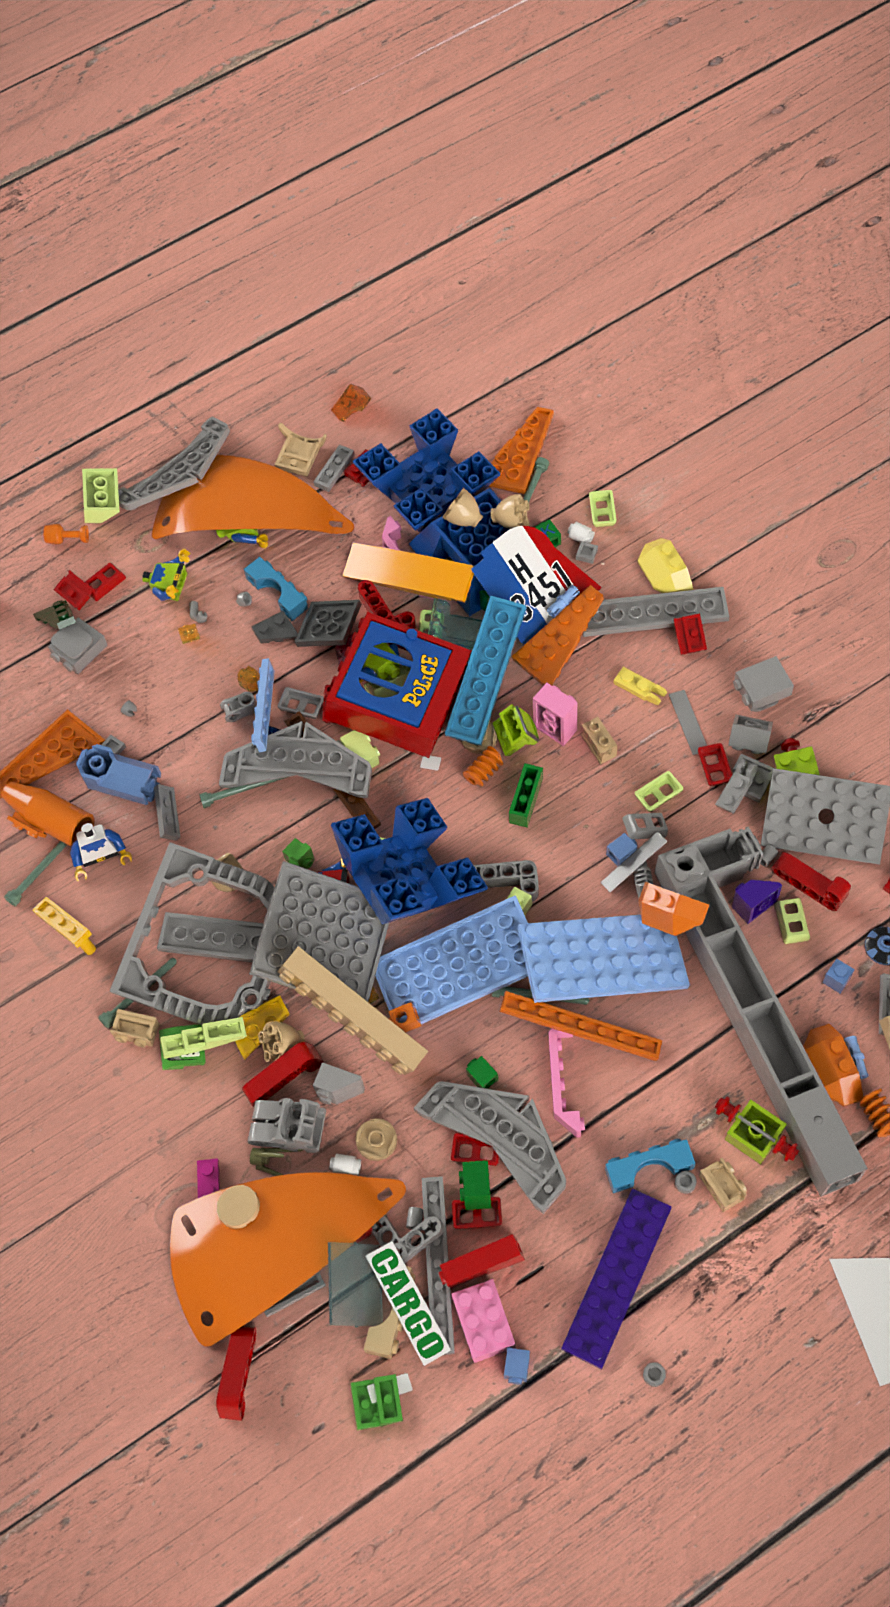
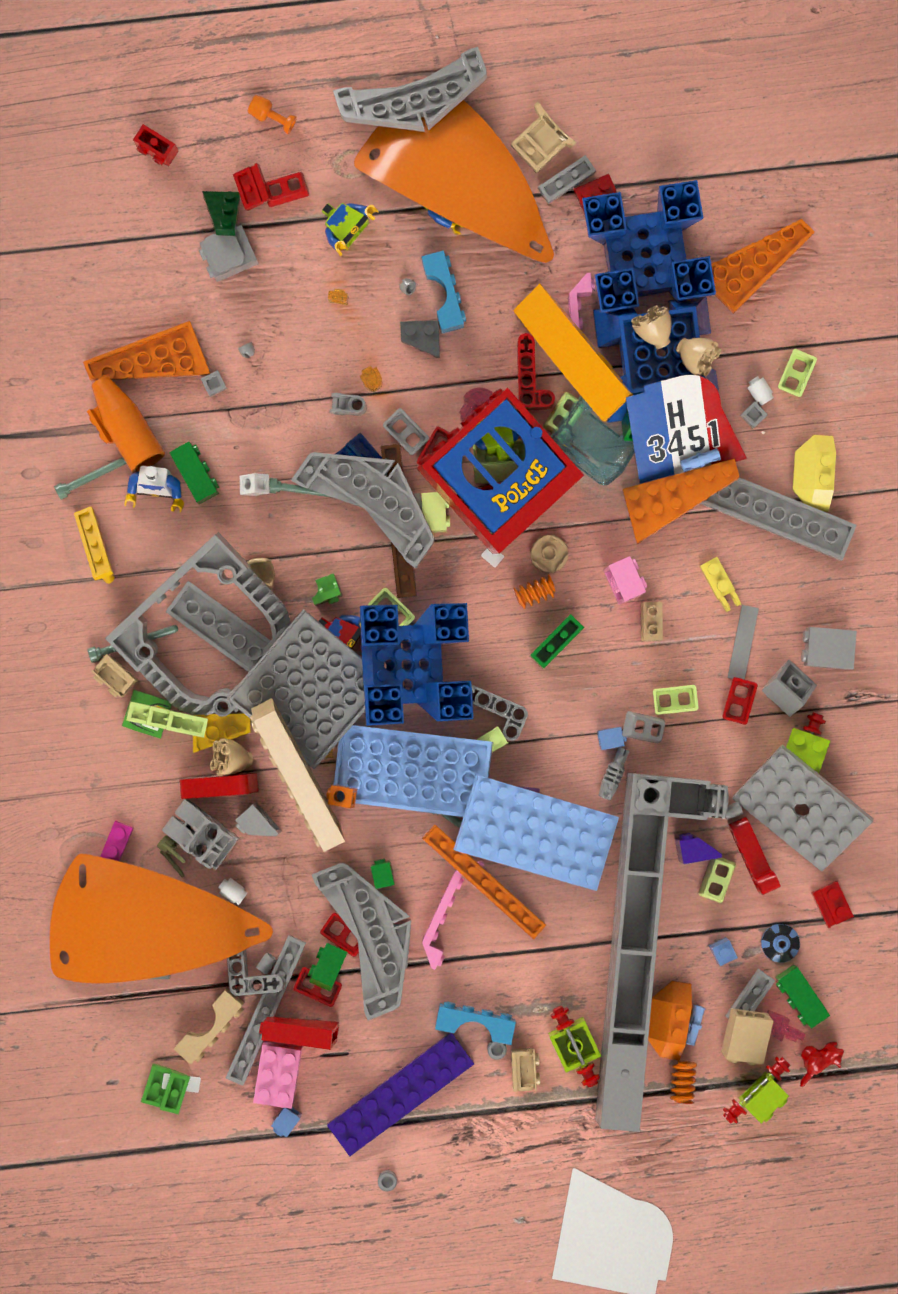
camera: 20 degrees right, 25 degrees up
(100, 494) = (324, 86): yellowish green slope -> none
(118, 774) = (204, 422): medium blue brick -> none
(129, 822) = (195, 472): none -> green brick
(167, 812) = (230, 486): light grey plate -> none
(187, 804) = (254, 484): none -> white brick
(195, 614) = (355, 278): light grey arm -> none
(233, 1381) = (67, 1013): red beam -> none
(238, 1206) = (126, 888): tan tile -> none
(263, 708) = (371, 417): light blue plate -> none
(328, 623) = (471, 362): dark grey plate -> none
(351, 401) = (623, 108): clear orange arch -> none
(353, 1286) = (190, 998): clear light blue piece -> none
(376, 1139) = (269, 880): tan tile -> none
(408, 1303) = (225, 1031): sticker -> none
(485, 670) = (587, 501): dark azure plate -> none
(515, 729) = (582, 572): lime piece -> none
(541, 466) = (765, 291): sand green piece -> none
(550, 531) = (728, 375): green brick -> none
(633, 862) = (614, 756): light grey sticker -> none
(670, 910) = (613, 828): orange wedge -> none
(690, 634) = (796, 559): red plate -> none
(737, 787) = (743, 735): light grey hinge -> none
(760, 781) = (771, 733): light grey plate -> none

